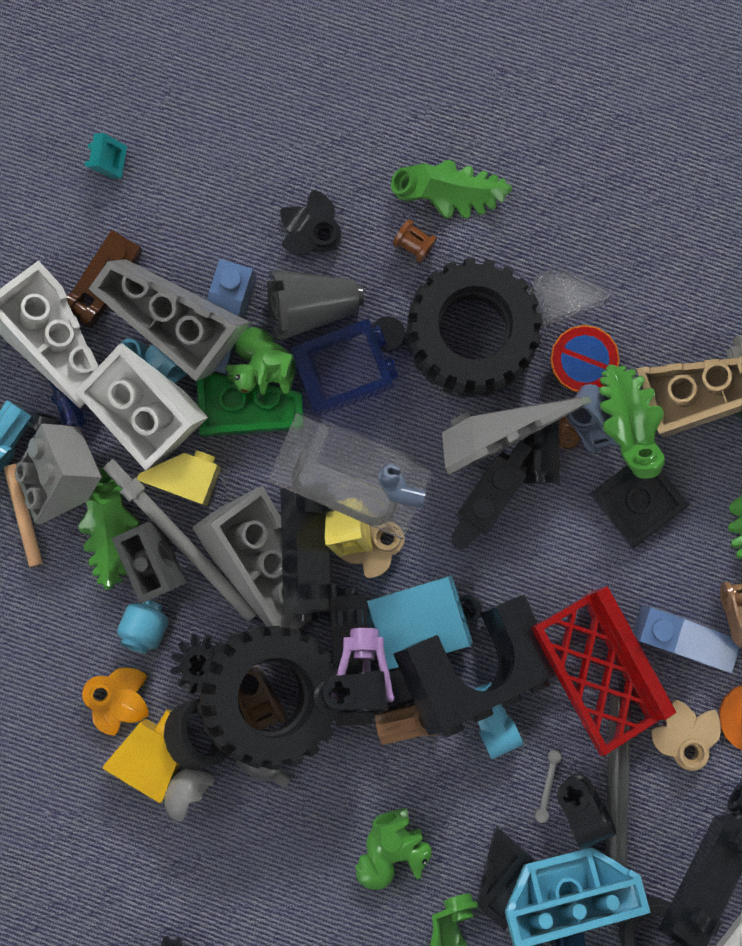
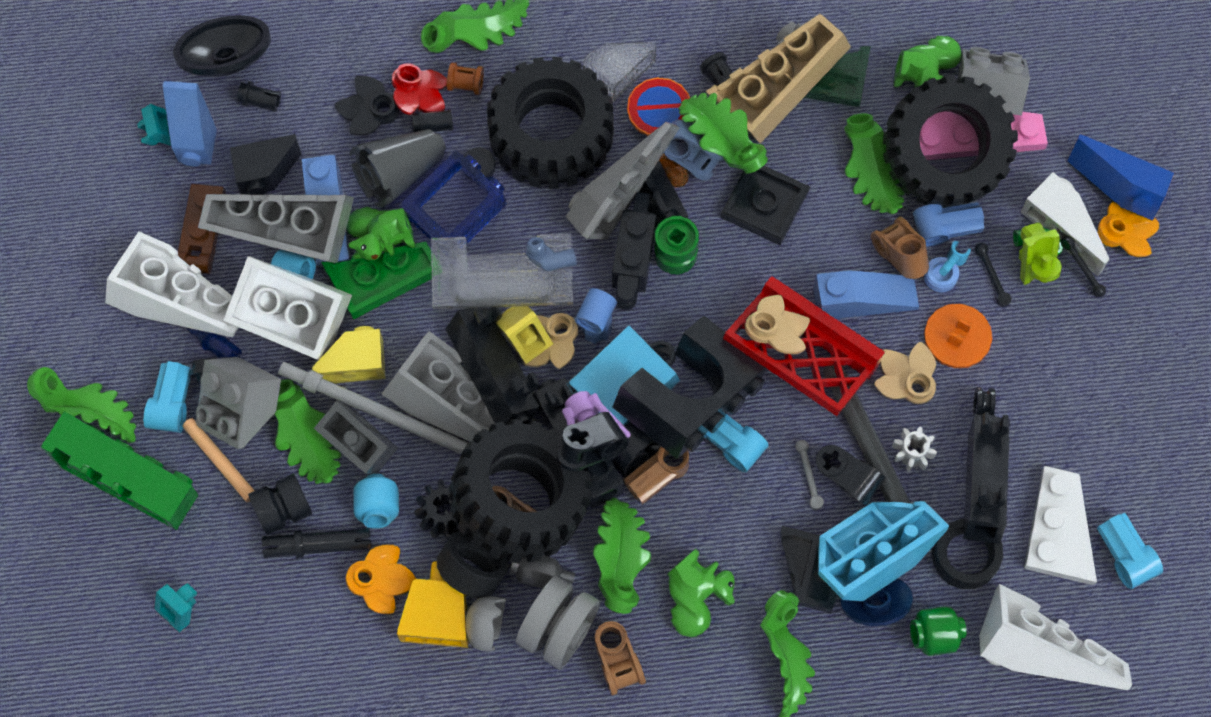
camera: 25 degrees left, 15 degrees down
(52, 589) = (280, 504): none -> black wheel
(63, 635) = (316, 543): none -> black pin
(129, 174) = (189, 123): none -> medium blue slope
(185, 242) = (264, 164): none -> black slope
(198, 101) = (222, 46): none -> black dish
(212, 168) = (258, 96): none -> black pin
(252, 832) = (557, 622): none -> light grey wheel
(291, 882) = (618, 659): none -> medium nougat piece
(338, 785) = (620, 555): none -> bright green plant
(363, 270) = (432, 120): none -> black pin
(366, 236) = (418, 89): none -> red plate
(423, 548) = (596, 315): none -> medium blue piece
(533, 508) = (676, 245): none -> green wheel
(591, 642) = (780, 326): none -> tan plate
(663, 338) = (713, 65): none -> black bush
(664, 820) = (913, 458): none -> white gear

